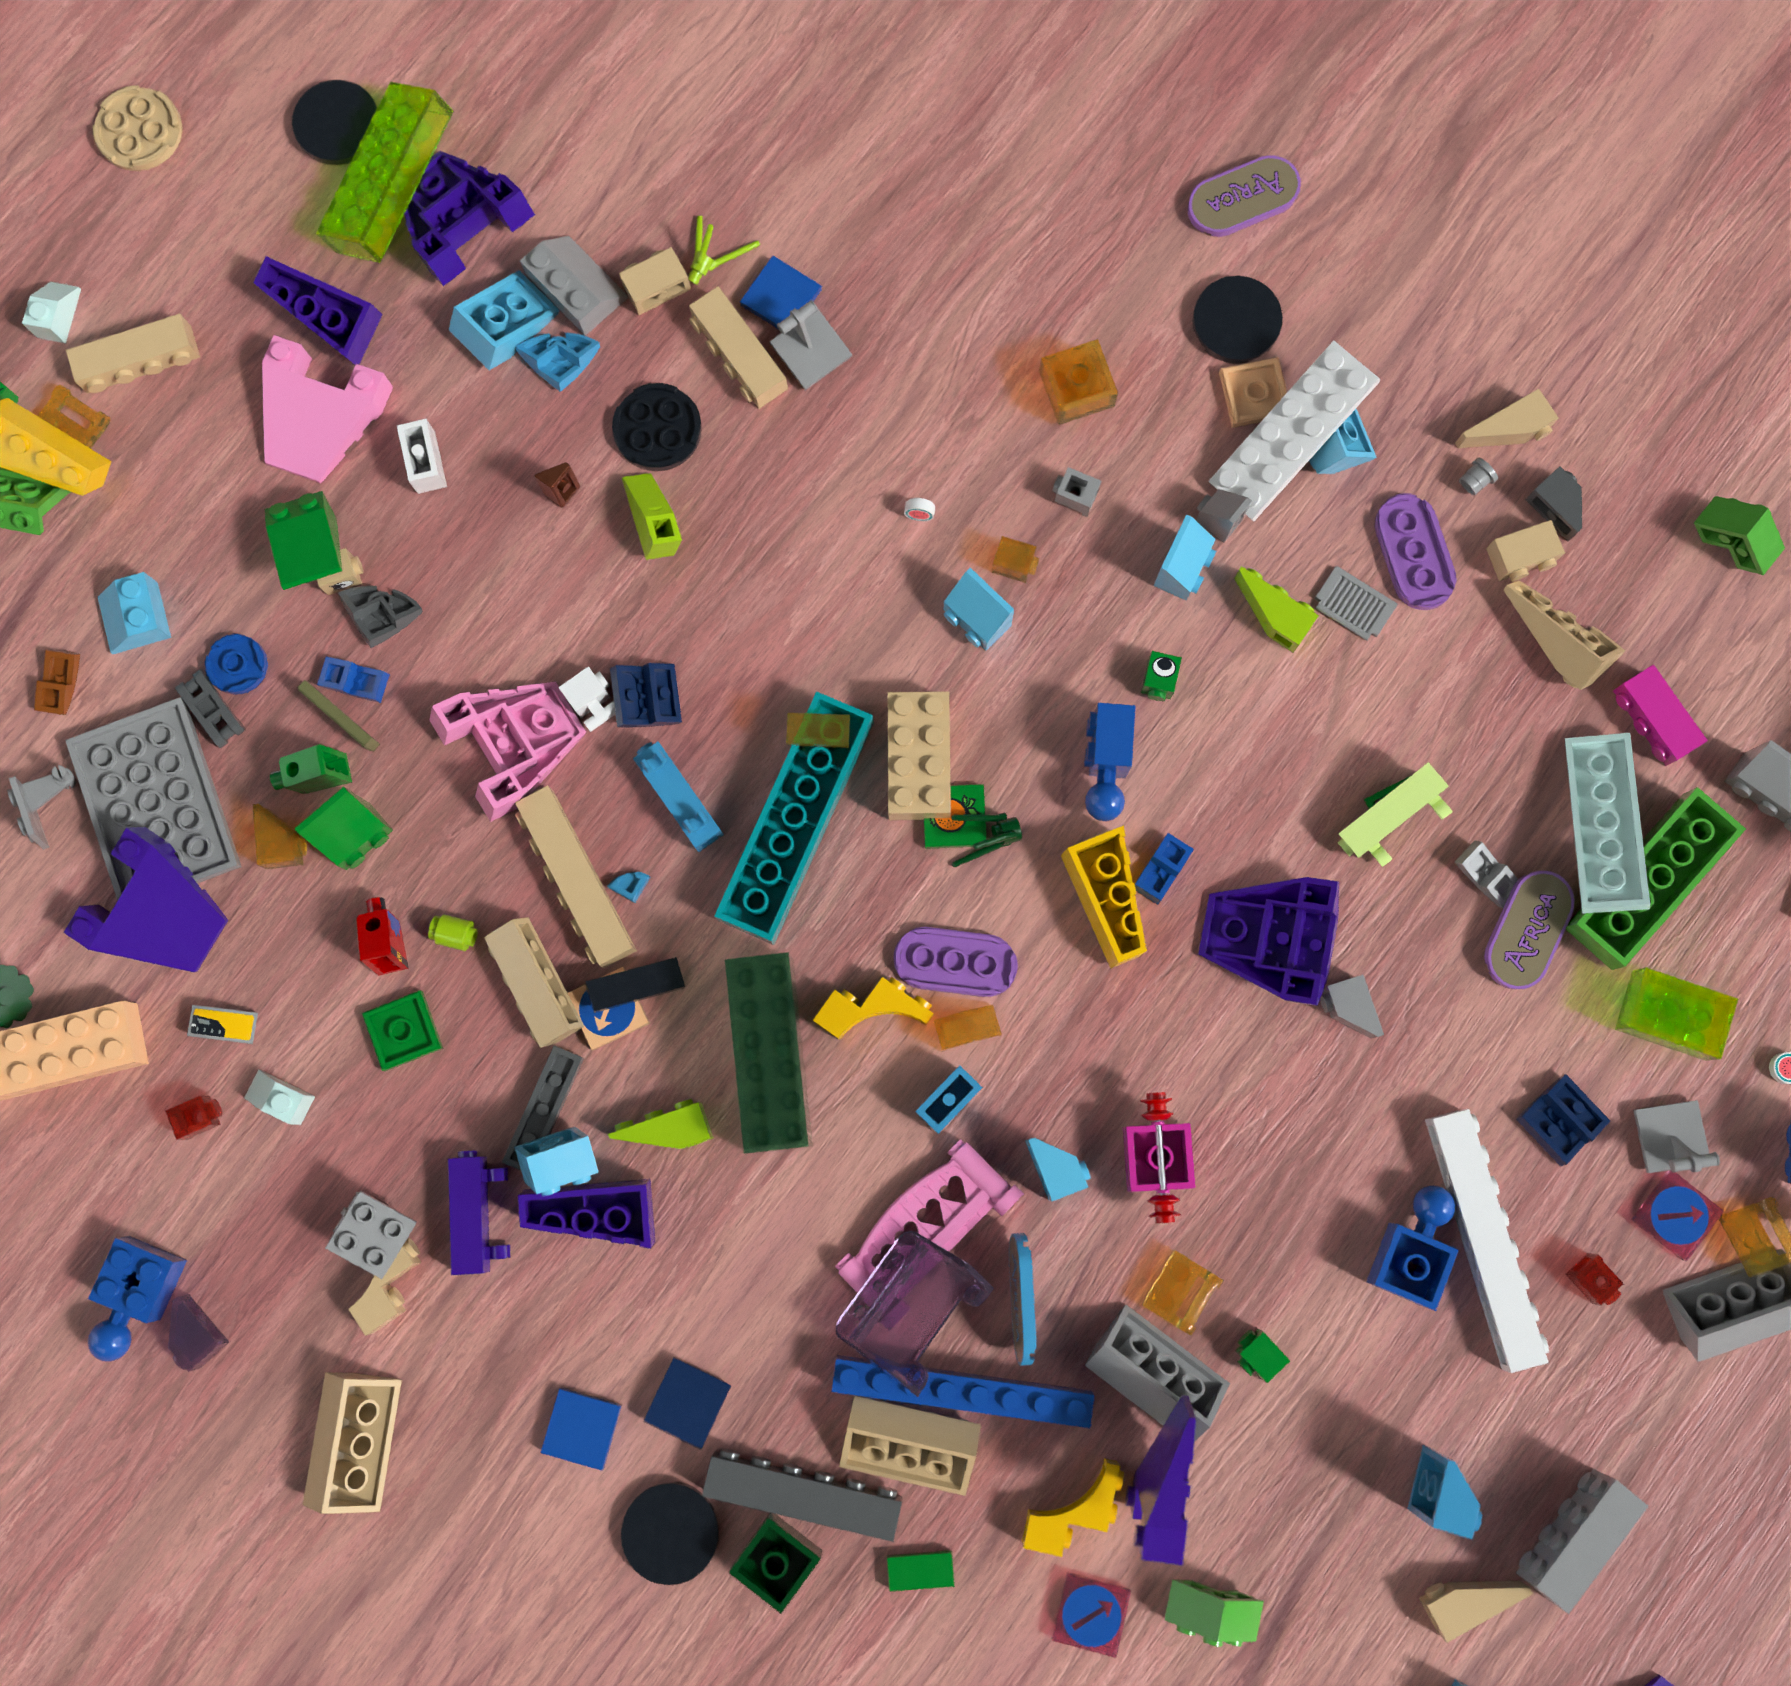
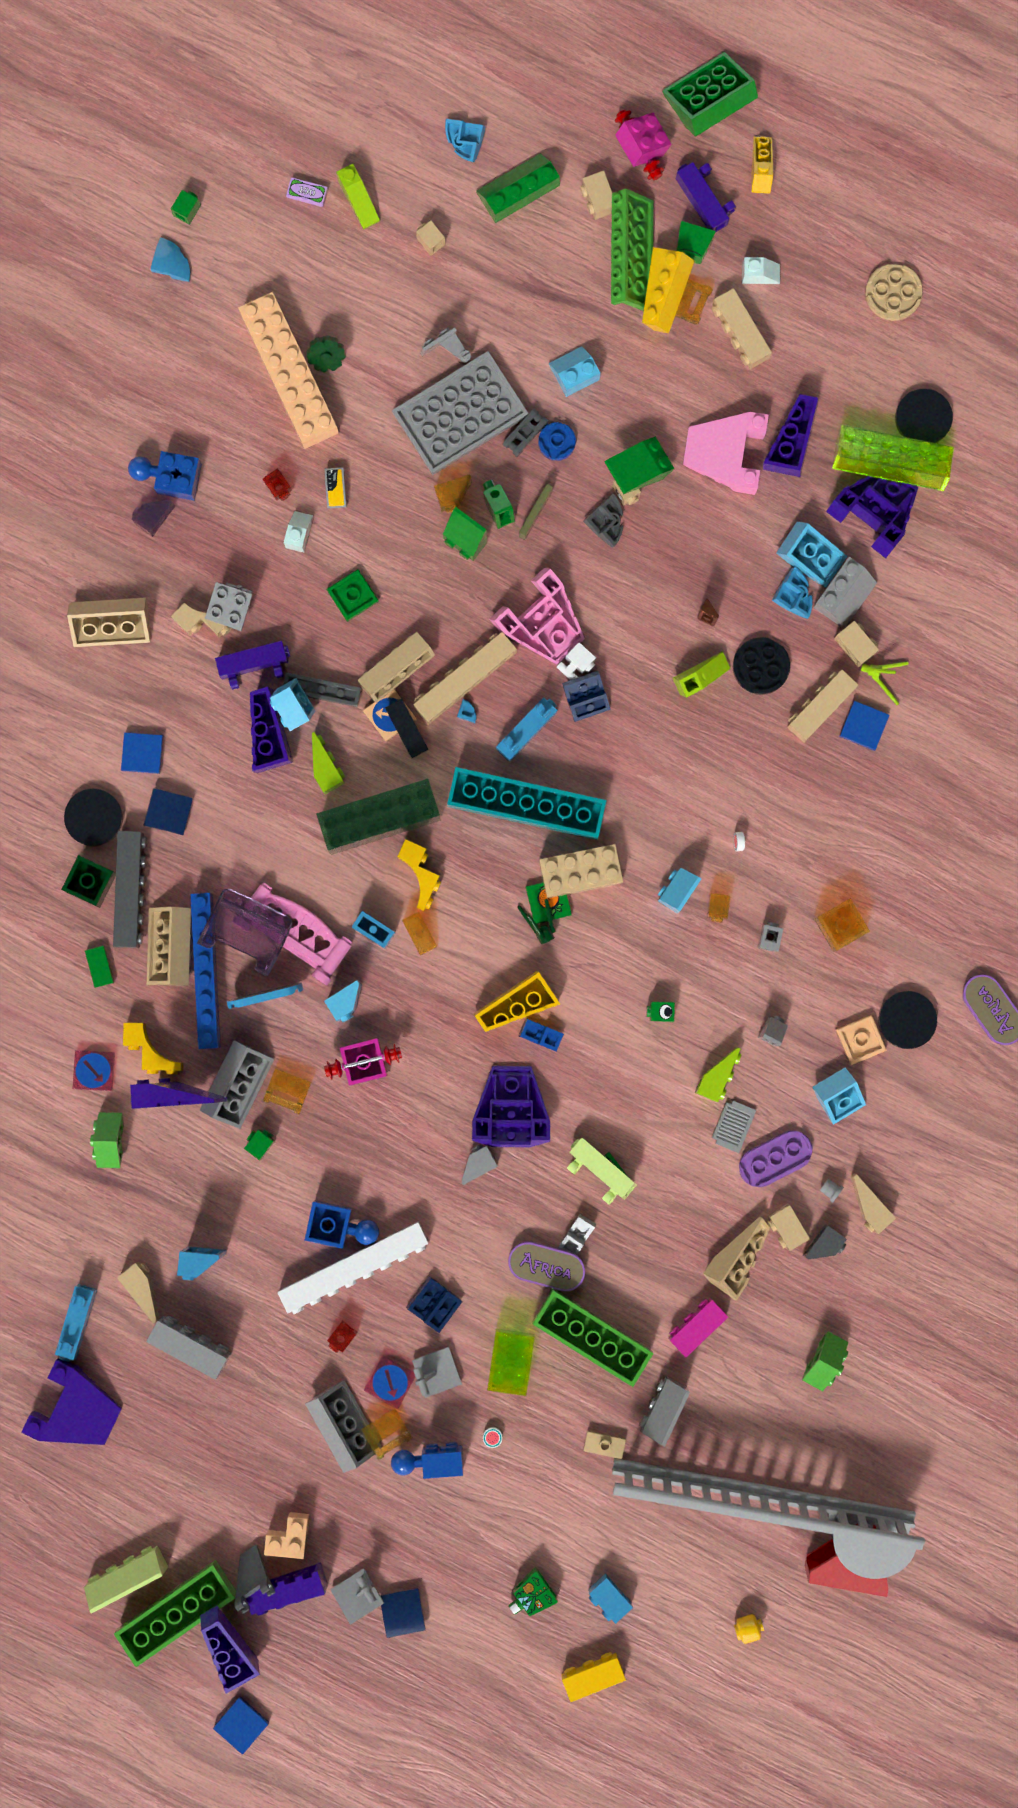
camera: 70 degrees right, 5 degrees up
(58, 682) = (523, 335): dark orange slope -> none
(160, 913) = (391, 435): dark purple wedge -> none
(353, 679) = (561, 515): blue slope -> none
(380, 939) = (404, 570): red torso -> none
(421, 456) = (710, 524): white brick -> none
(452, 932) = (417, 612): lime brick -> none
(809, 345) = (832, 751): light grey plate -> none
(818, 730) = (581, 806): clear yellow tile -> none
(955, 962) = (458, 919): medium lavender tile -> none
(1108, 757) = (602, 987): blue brick -> none
(1185, 560) = (738, 1013): medium azure slope -> none
(1296, 428) = (834, 1066): white plate -> none
(1606, 823) = (620, 1300): light aqua plate -> none

